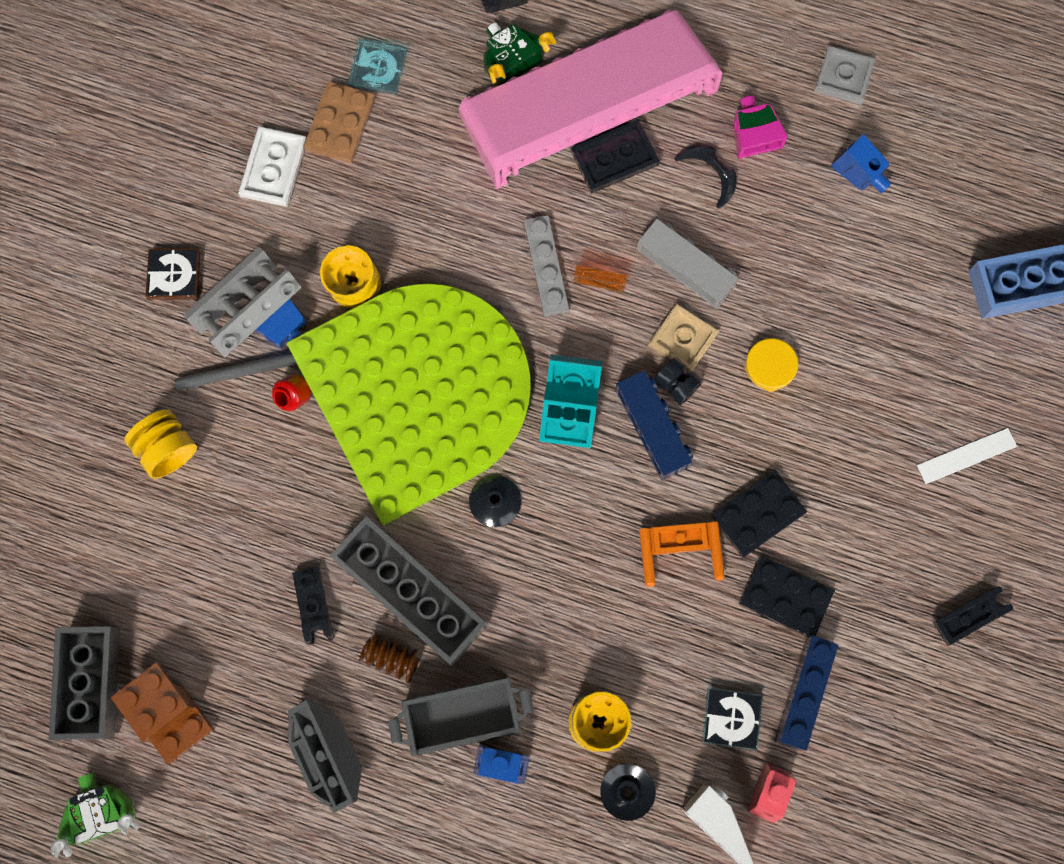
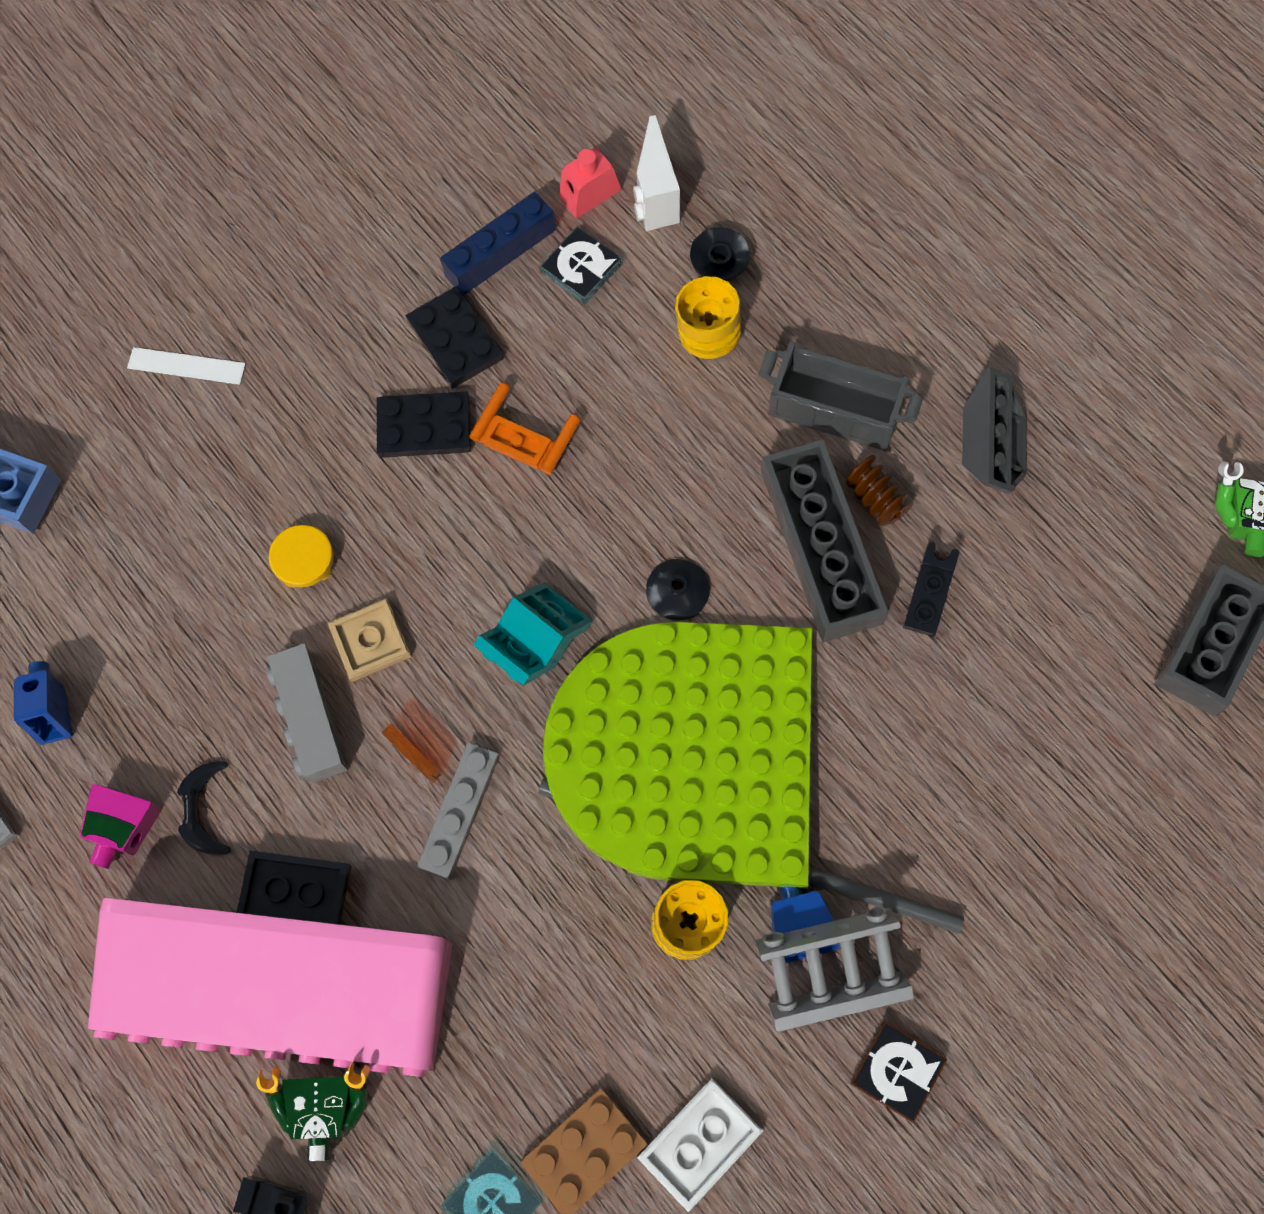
camera: 145 degrees left, 5 degrees down
(160, 443) = (1015, 850): yellow wheel -> none
(162, 713) = (1146, 564): dark orange bracket -> none
(291, 392) = (833, 826): red head -> none
(501, 765) = (826, 333): blue torso -> none
(653, 425) = (464, 564): dark blue brick -> none
(678, 380) = (407, 590): black wheel -> none
(971, 616) = (298, 226): black plate -> none

